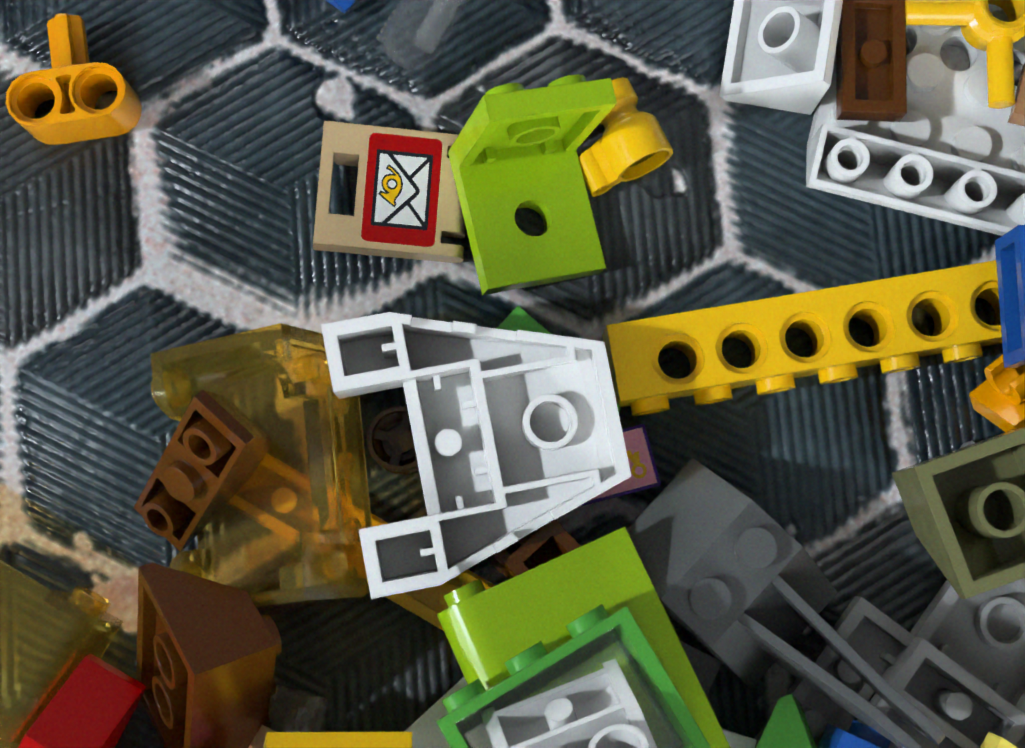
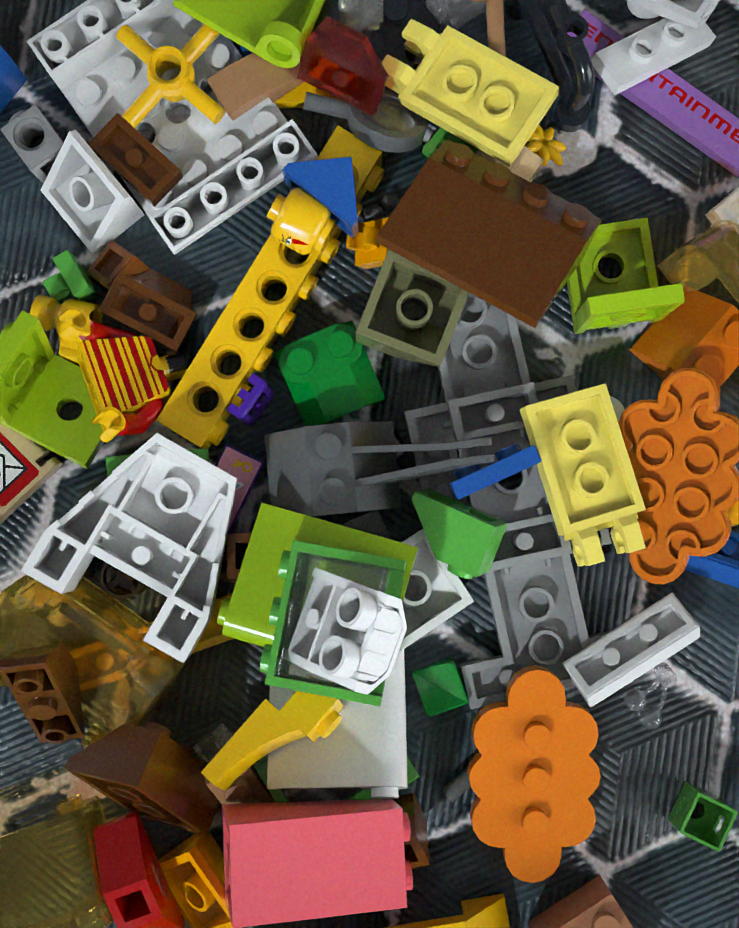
camera: 45 degrees left, 5 degrees up
(623, 242) = (121, 374): none -> torso
(673, 99) = (70, 280): none -> bright green tile
(719, 212) = (151, 307): none -> reddish brown slope
(724, 414) = (251, 401): none -> dark purple tile
(726, 141) = (114, 260): none -> dark orange slope
(823, 471) = (329, 374): none -> green slope
(975, 295) = (300, 221): none -> yellow head

